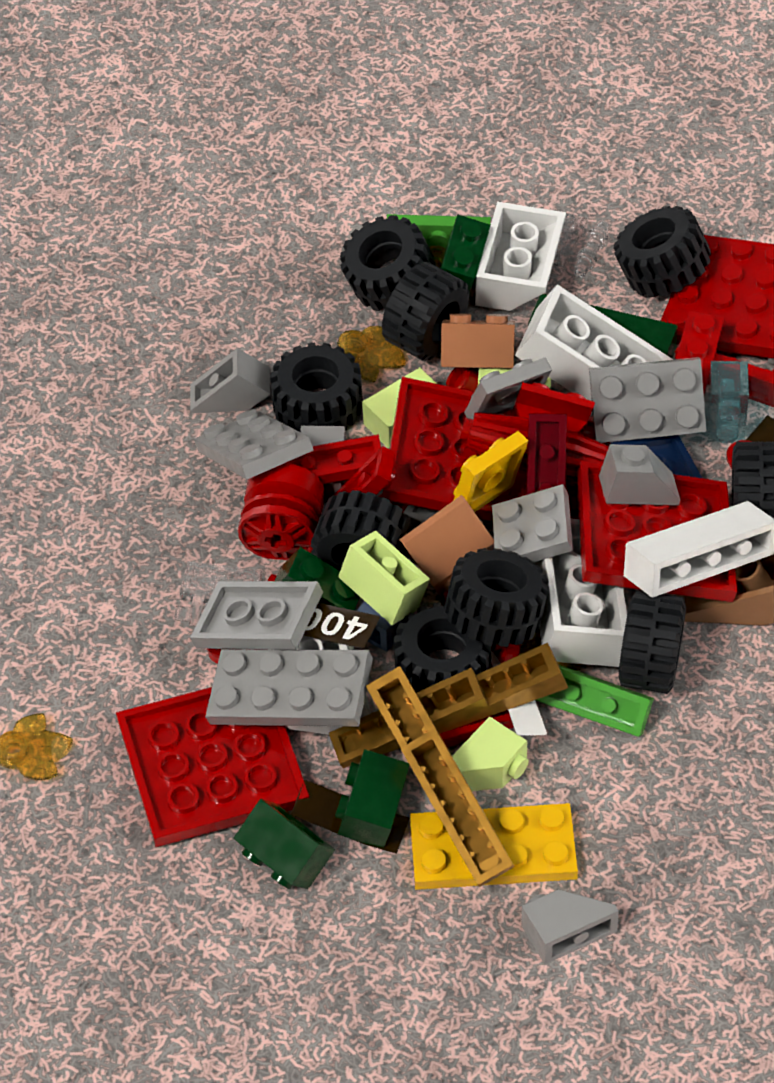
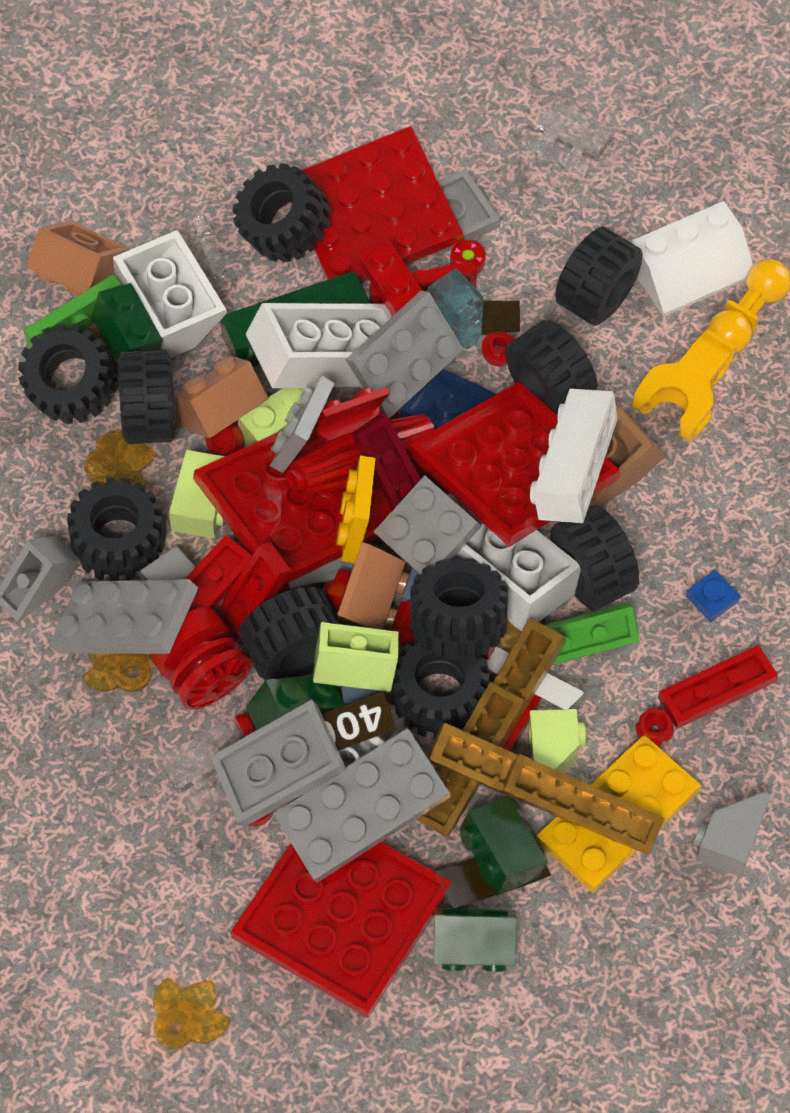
camera: 45 degrees left, 10 degrees up
(221, 487) = (110, 672): none -> clear yellow plate
(476, 186) = (73, 256): none -> nougat slope
(586, 796) = (657, 718): none -> red plate
(636, 477) = (469, 430): light grey slope -> none
(667, 811) = (717, 686): none -> red plate
(735, 746) = (712, 596): none -> blue plate

